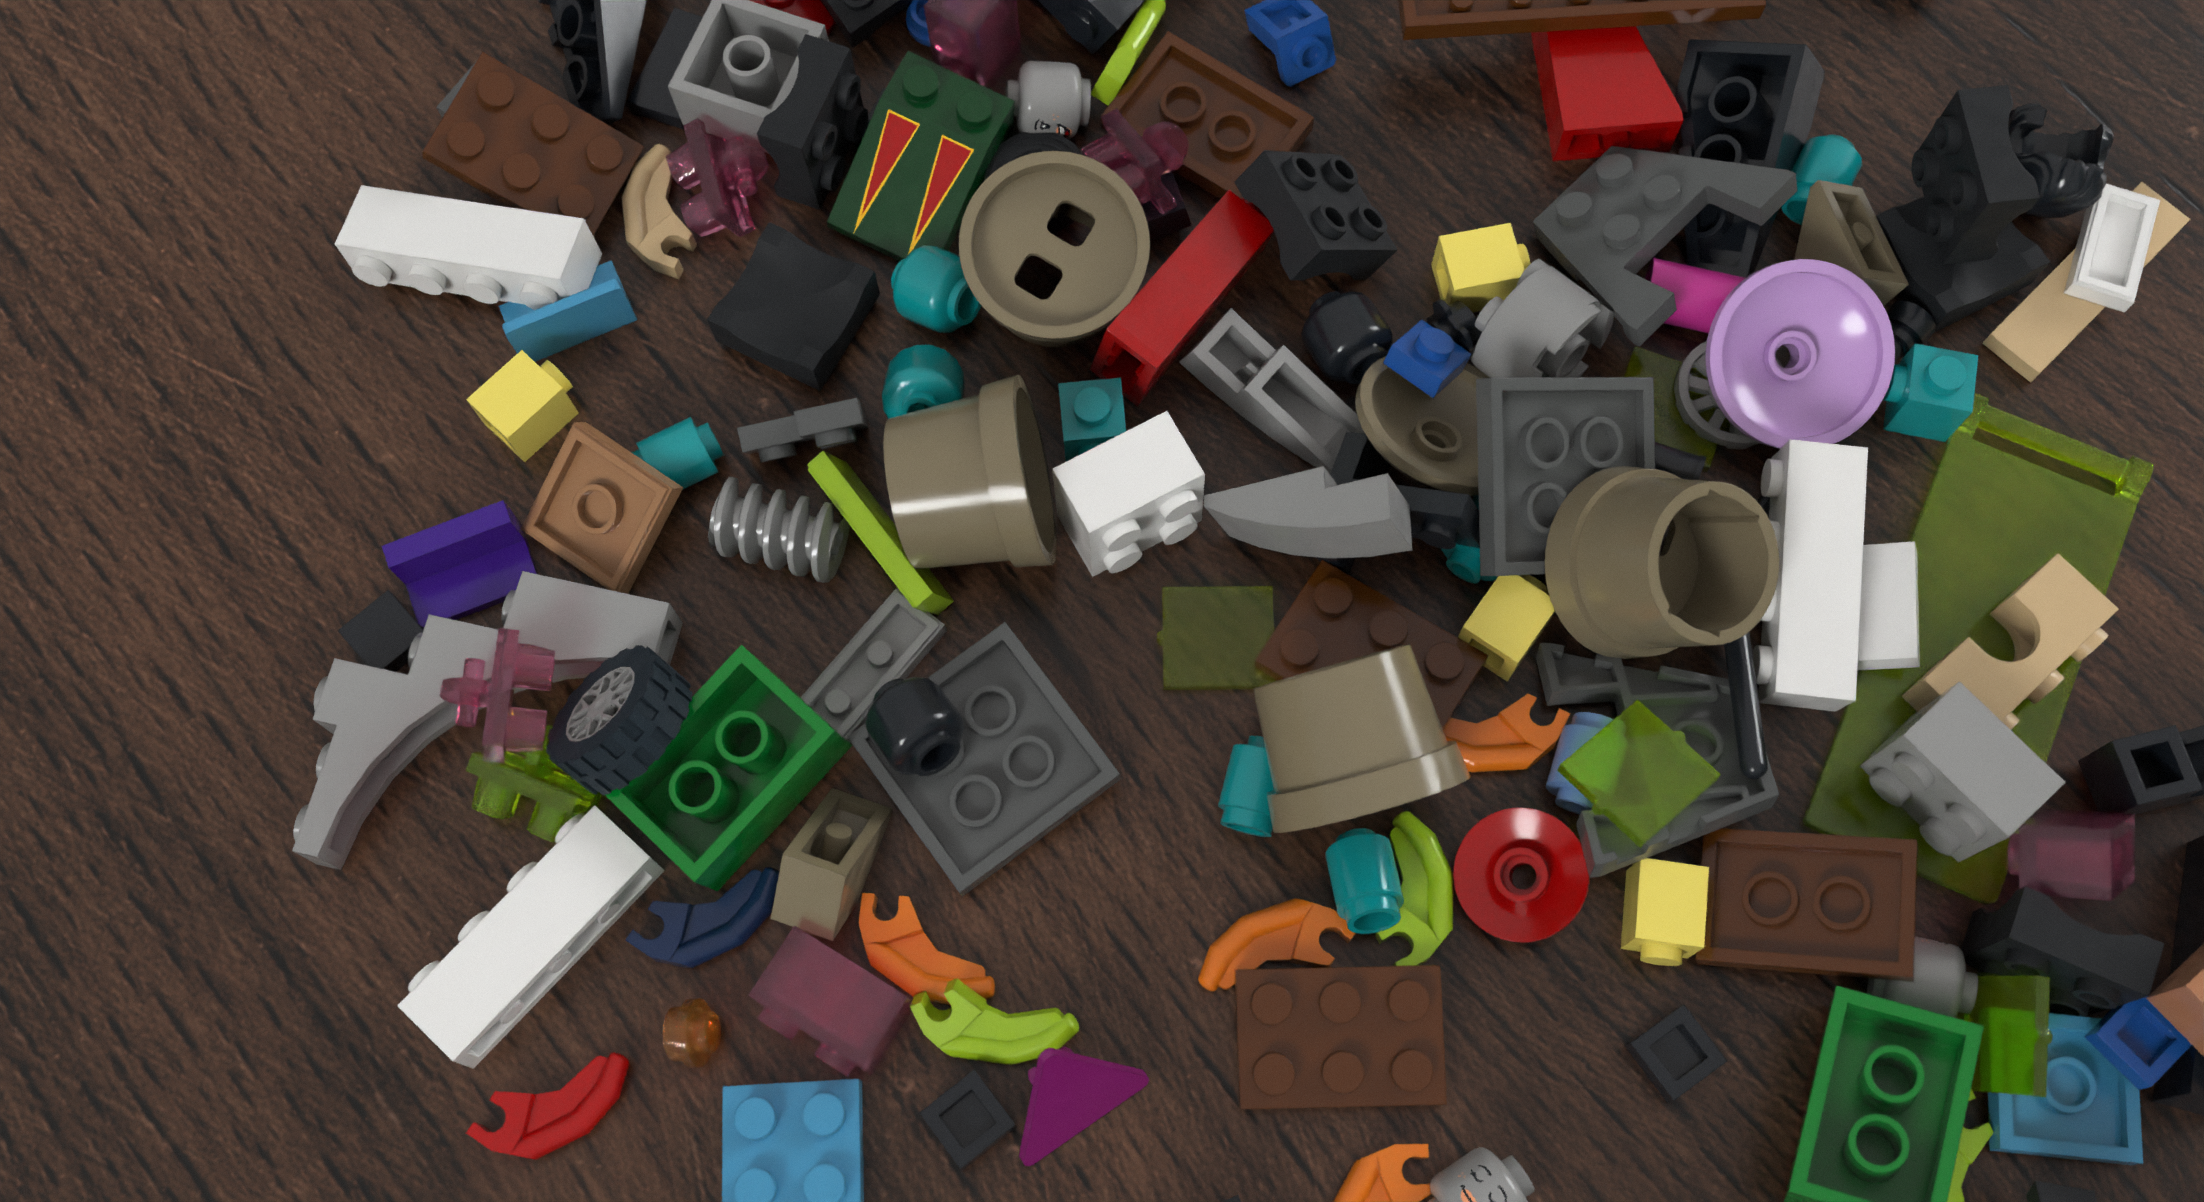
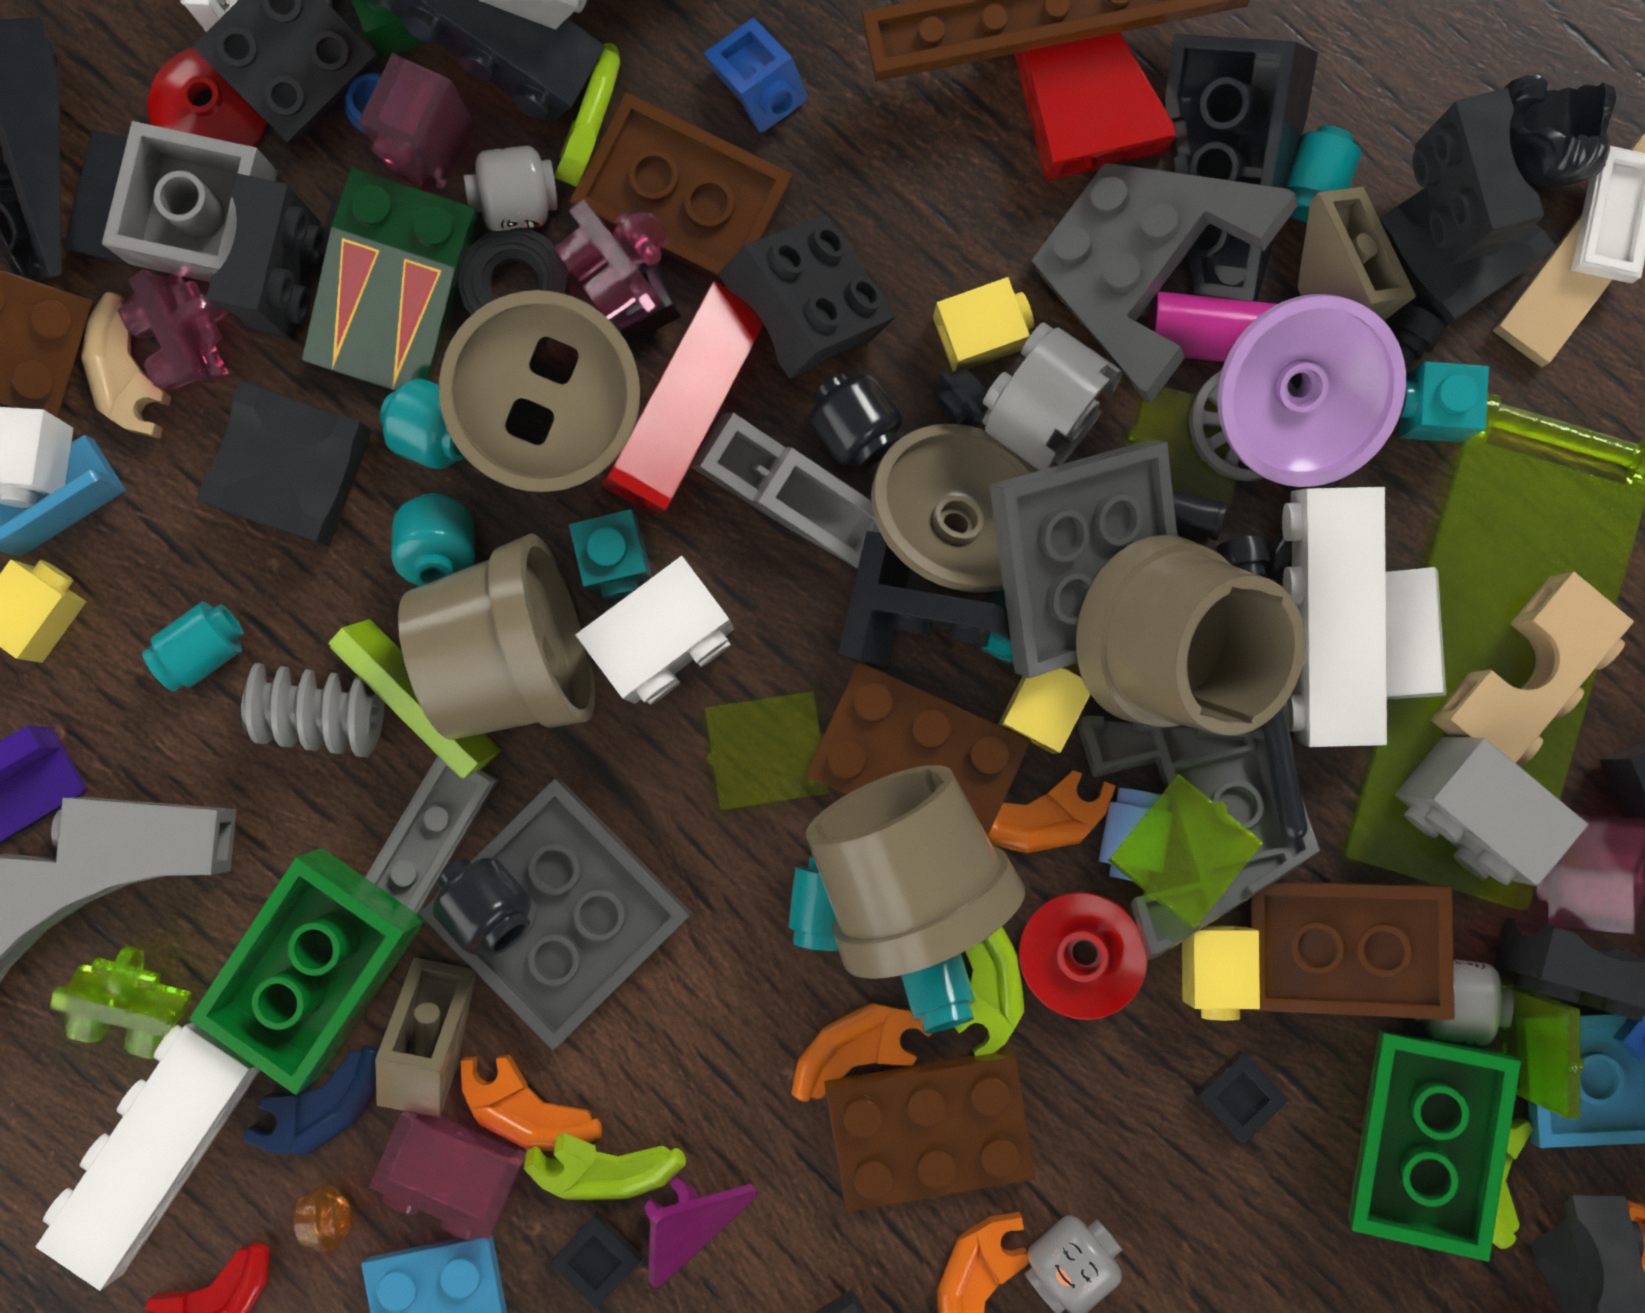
camera: 15 degrees left, 15 degrees up
(513, 667) = (75, 970): clear pink hips -> none
(601, 508) = (129, 712): medium nougat tile -> none
(619, 720) = (190, 946): black wheel -> none
(827, 424) = (332, 599): dark grey plate -> none
(1316, 516) = (850, 635): light grey slope -> none
(1427, 358) = (938, 439): blue plate -> none

